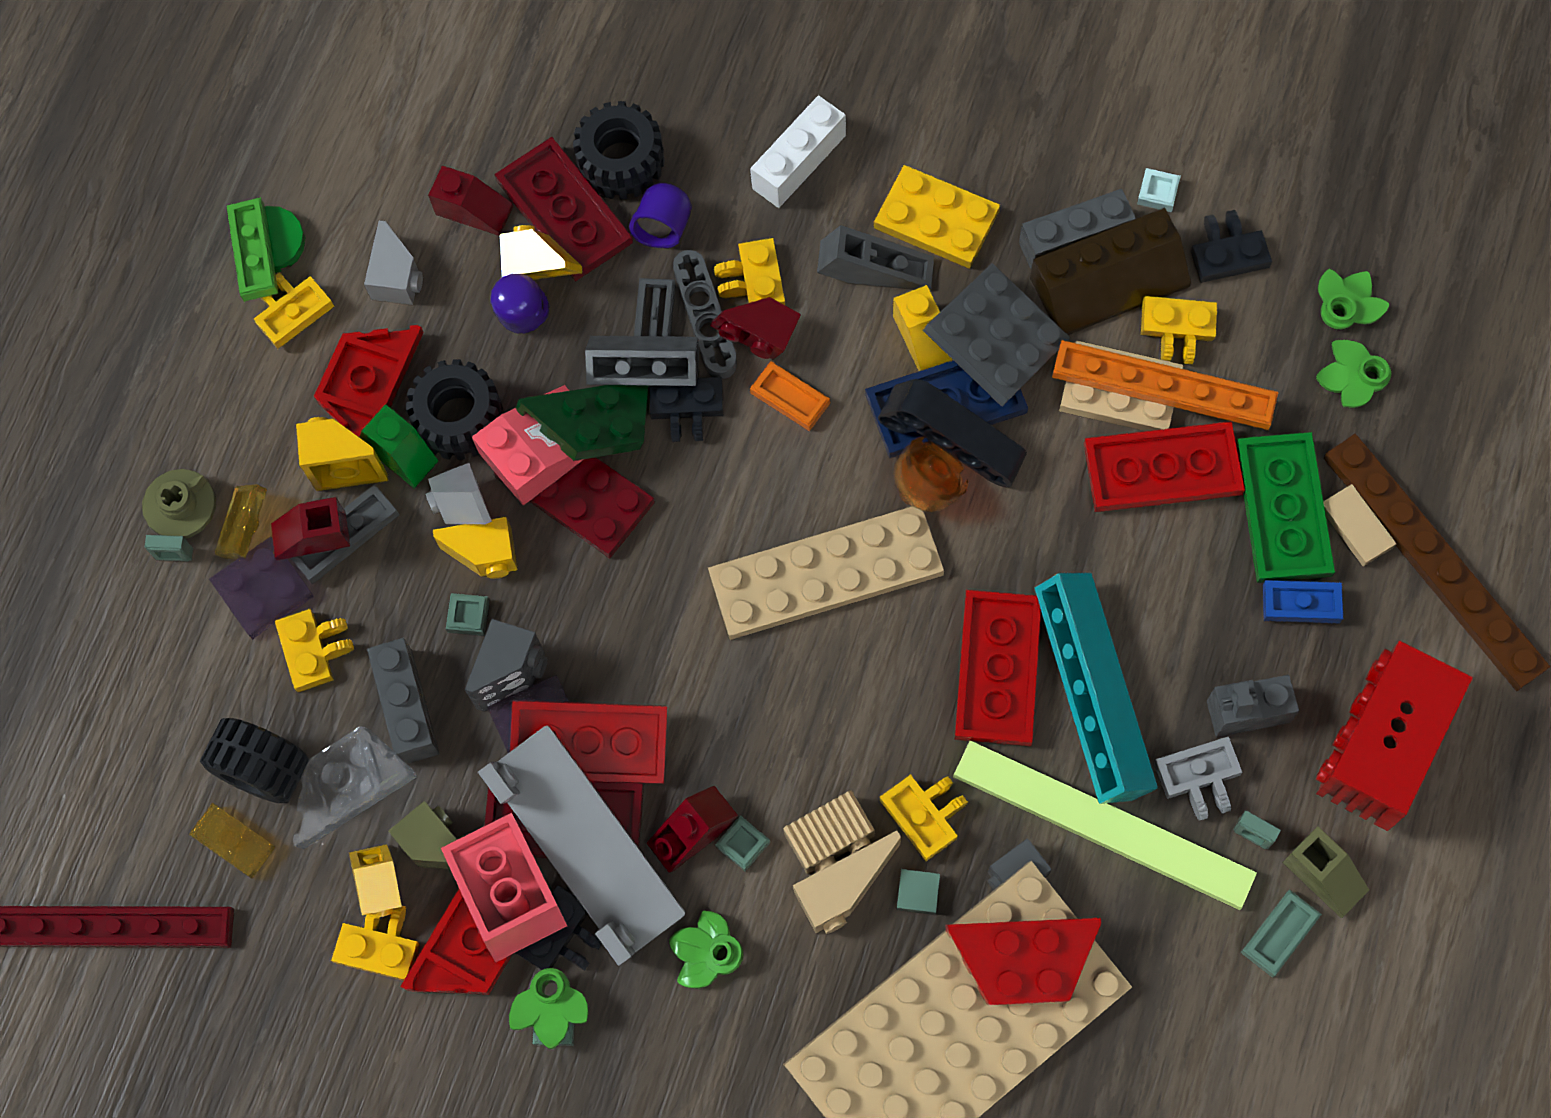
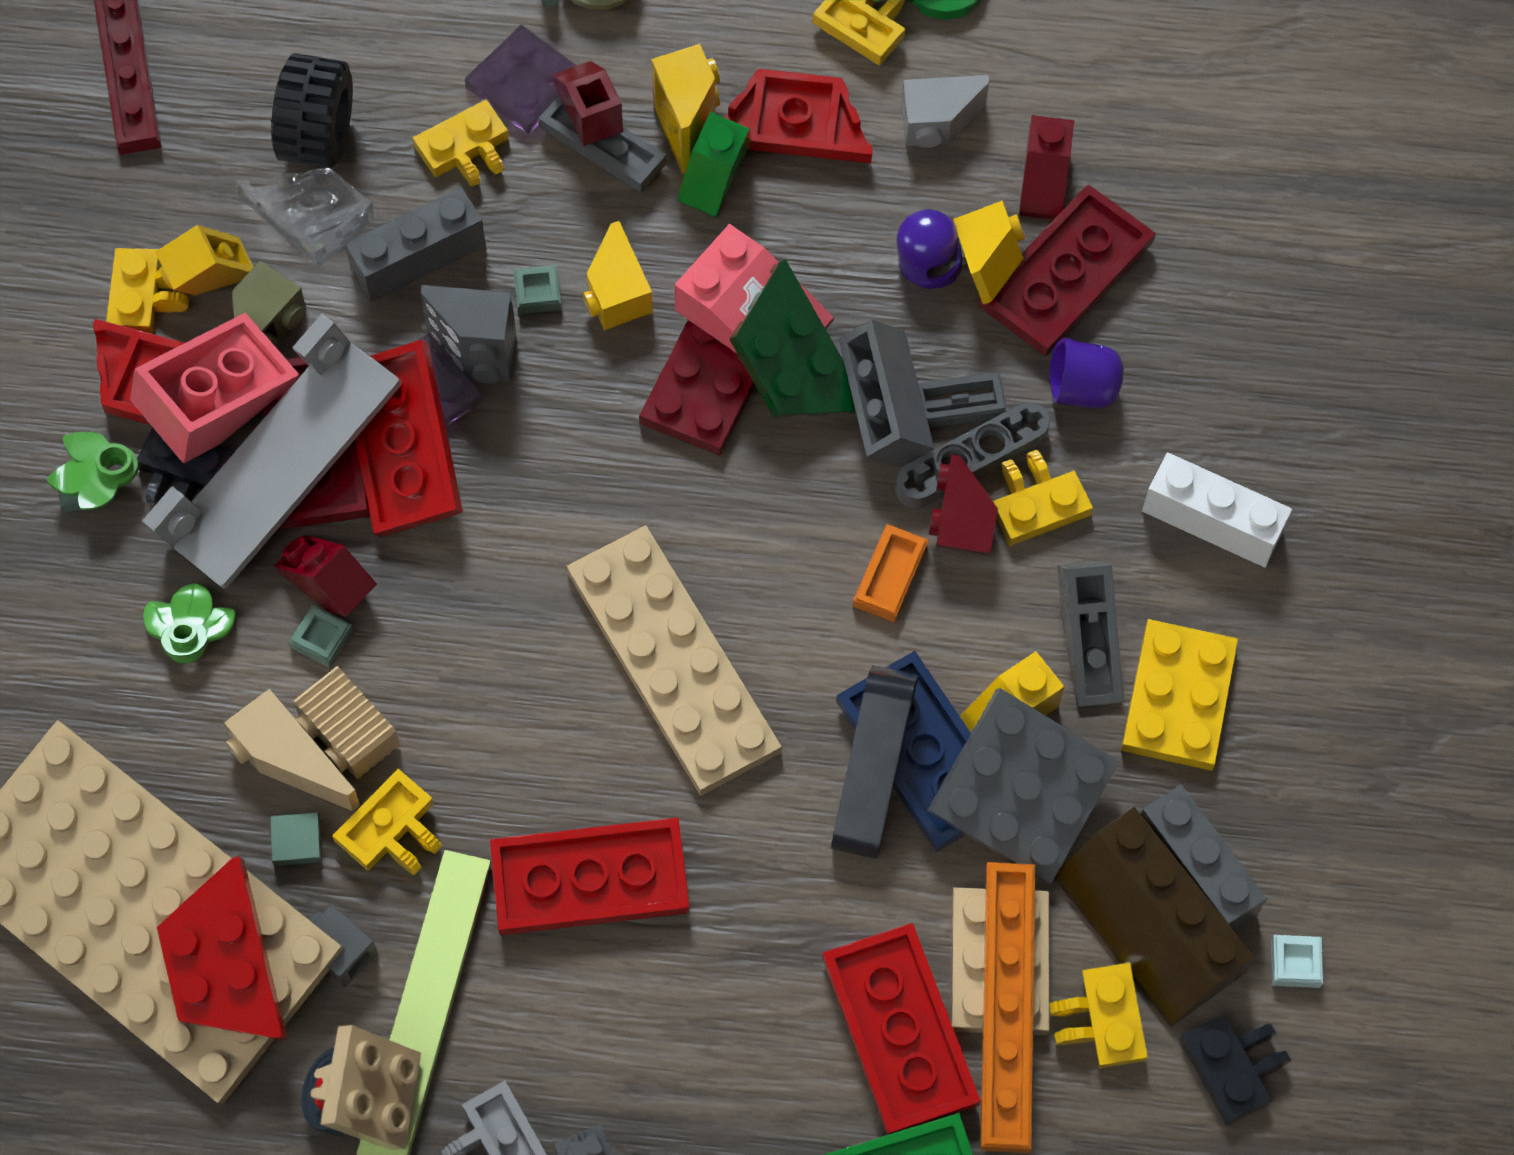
camera: 70 degrees right, 5 degrees down
(232, 840) = (233, 124): clear yellow plate -> none
(240, 521) = (593, 37): clear yellow plate -> none
(441, 386) = (783, 183): black tyre -> none
(458, 497) = (668, 241): light grey slope -> none
(614, 126) = (1161, 278): black tyre -> none
(687, 402) = (860, 476): black hinge -> none
(928, 476) = (812, 742): clear orange cylinder -> none
(1095, 688) = (582, 991): teal brick -> none
(1149, 870) = (362, 1088): none -> tan plate

